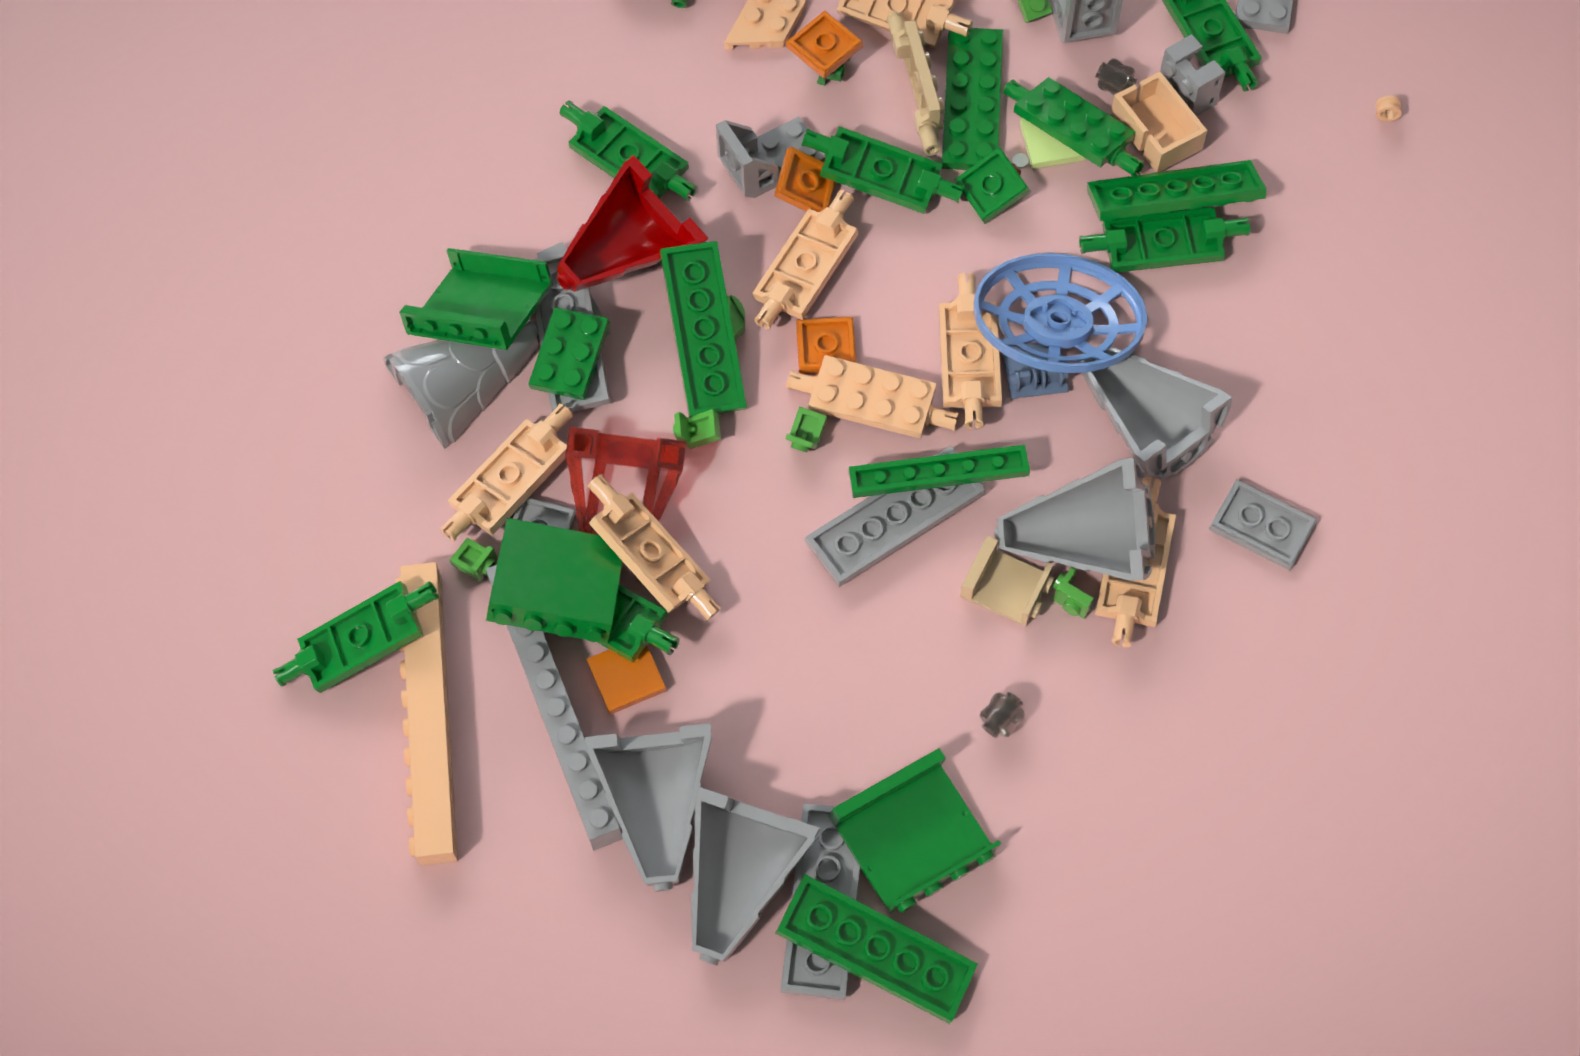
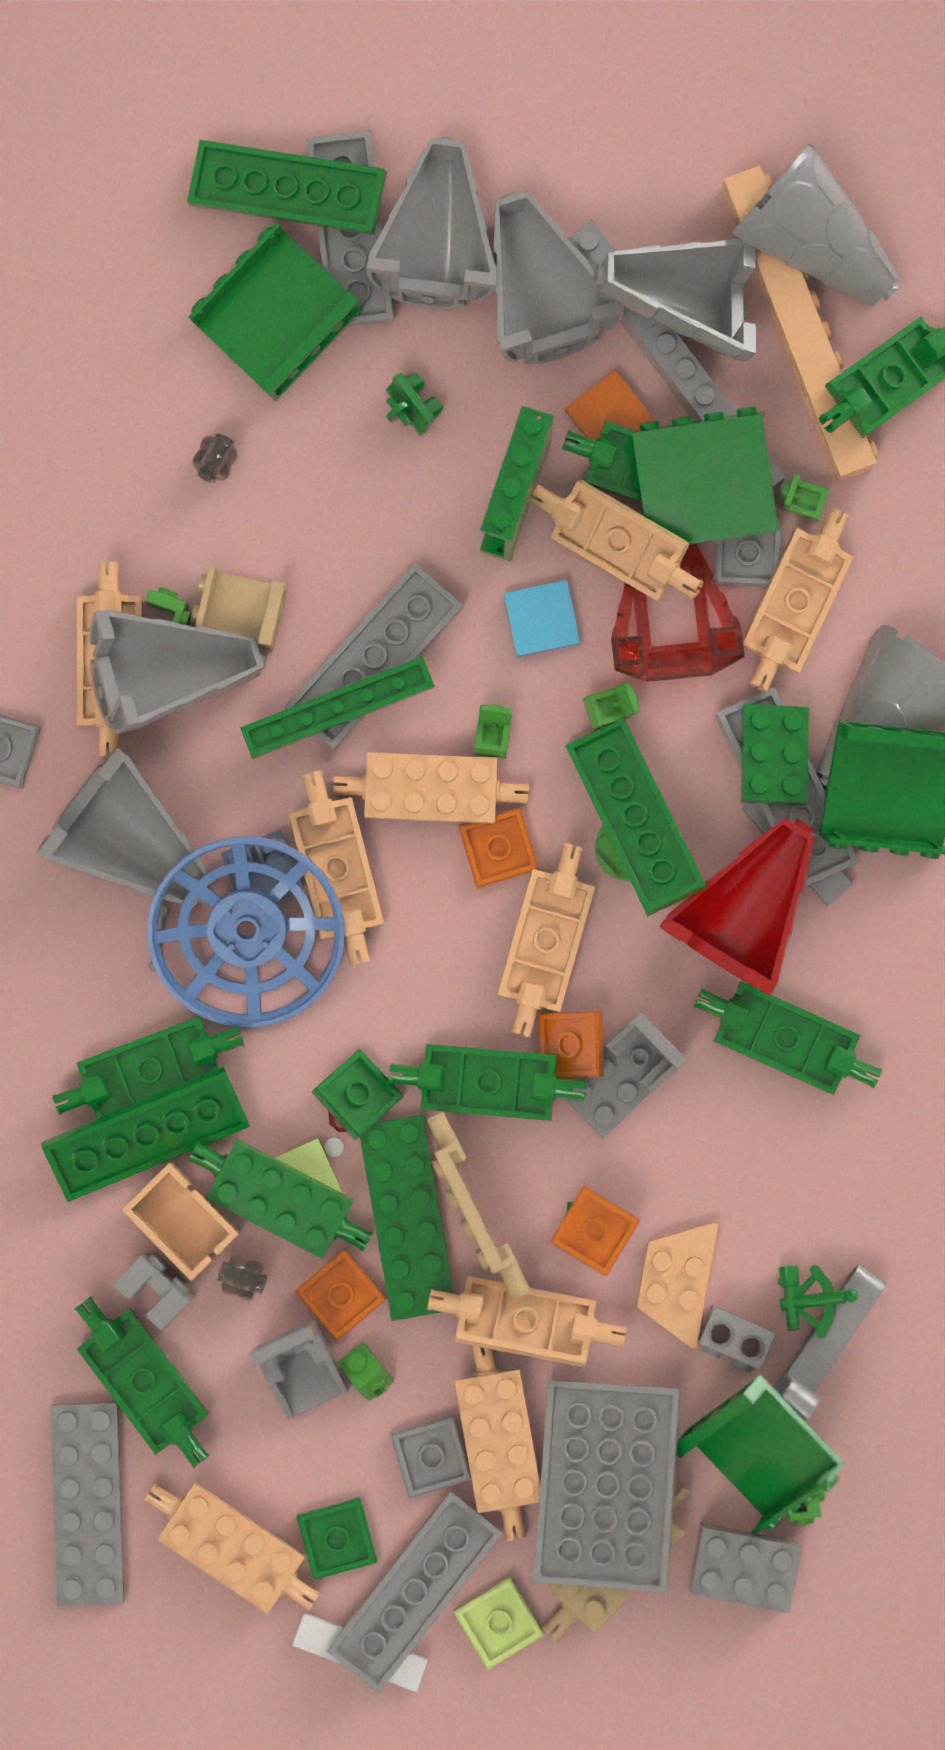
camera: 165 degrees right, 20 degrees up
(379, 783) = (819, 232): none -> light grey cone
(521, 737) = (687, 289): none -> light grey cone
(728, 608) = (516, 483): none -> green panel
(737, 516) = (541, 618): none -> medium azure tile
(799, 712) = (408, 405): none -> green hips
(1038, 57) = (340, 1294): none -> orange tile

